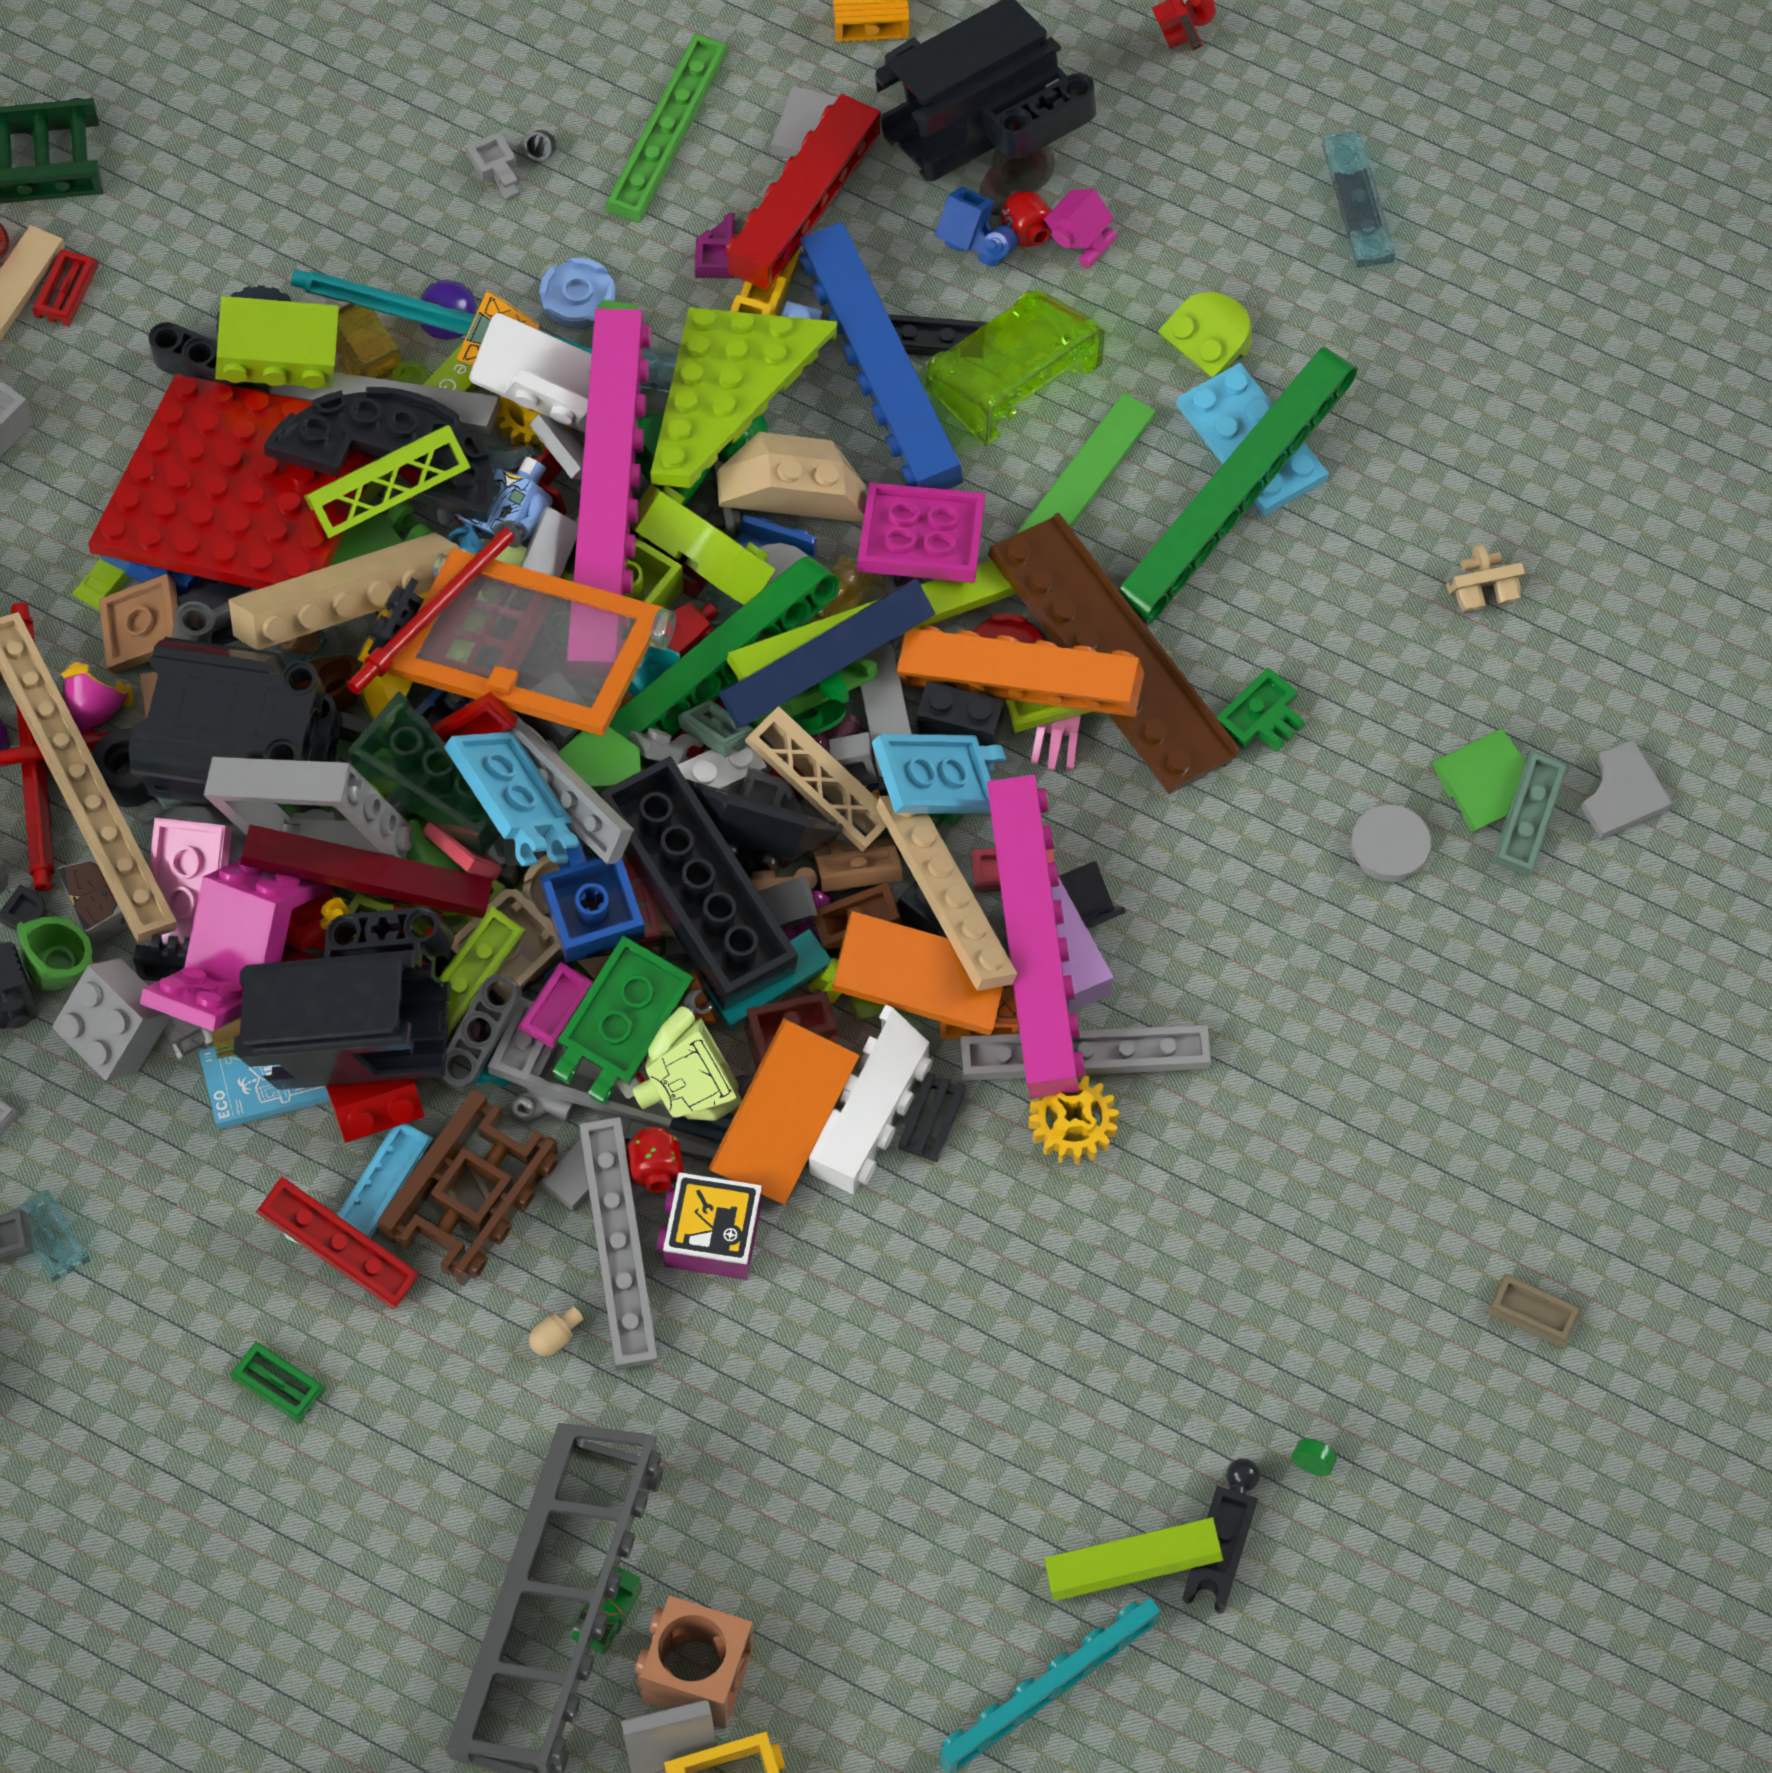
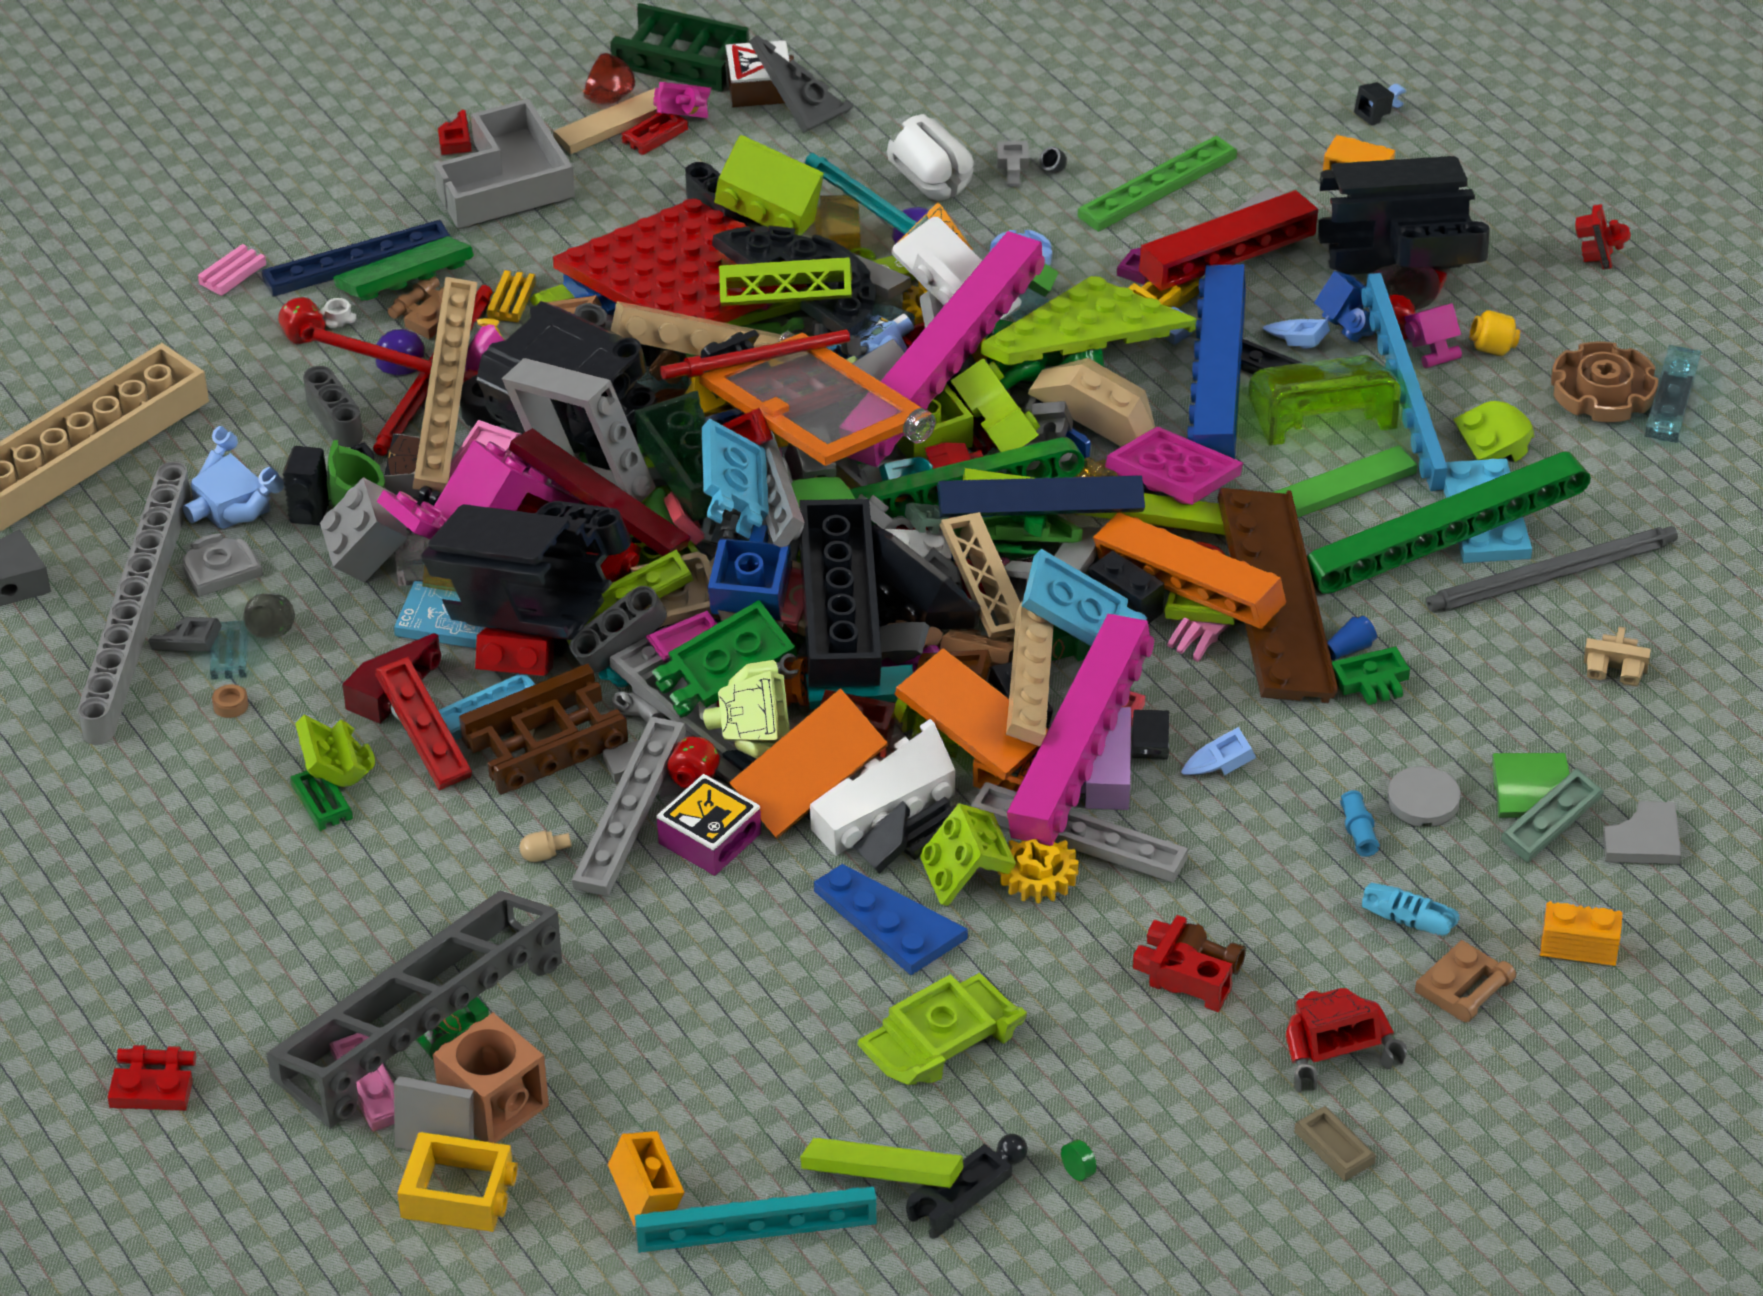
camera: 30 degrees right, 20 degrees down
(46, 574) = (500, 292): none -> yellow tile
(74, 1177) = (269, 615): none -> clear smoke head
(78, 237) = (682, 99): none -> dark pink hips
(96, 1303) = (230, 701): none -> medium nougat tile
(140, 156) = (748, 78): none -> piece
(212, 170) = (801, 92): none -> dark grey wing
(241, 1226) = (362, 689): none -> dark red slope
(262, 1324) = (333, 752): none -> lime slope
(416, 208) = (931, 158): none -> white cylinder
(588, 1737) = (374, 1089): none -> bright pink tile
(769, 530) = (1052, 417): none -> flat silver tile
(902, 1157) = (886, 839): none -> black tile
(920, 1698) = (645, 1174): none -> light orange brick
(936, 279) = (1300, 332): none -> light blue plate
(964, 1252) = (893, 922): none -> blue wing
(997, 1141) = (960, 846): none -> lime bracket
(1078, 293) = (1414, 412): none -> dark azure plate
(1090, 1362) = (939, 1025): none -> lime piece
(1139, 196) = (1494, 333): none -> yellow head
(1169, 887) = (1223, 753): none -> light blue plate
(1215, 673) = (1352, 637): none -> blue cone
(1276, 1172) = (1189, 961): none -> red hips
(1283, 214) = (1604, 381): none -> medium nougat piece
(1350, 909) = (1359, 823): none -> dark azure pin
(1359, 489) = (1551, 568): none -> dark grey piece
(1469, 1180) = (1337, 1025): none -> red torso
(1478, 994) = (1409, 909): none -> medium azure hinge
(1537, 1054) = (1457, 973): none -> medium nougat plate
(1635, 950) = (1581, 933): none -> light orange brick

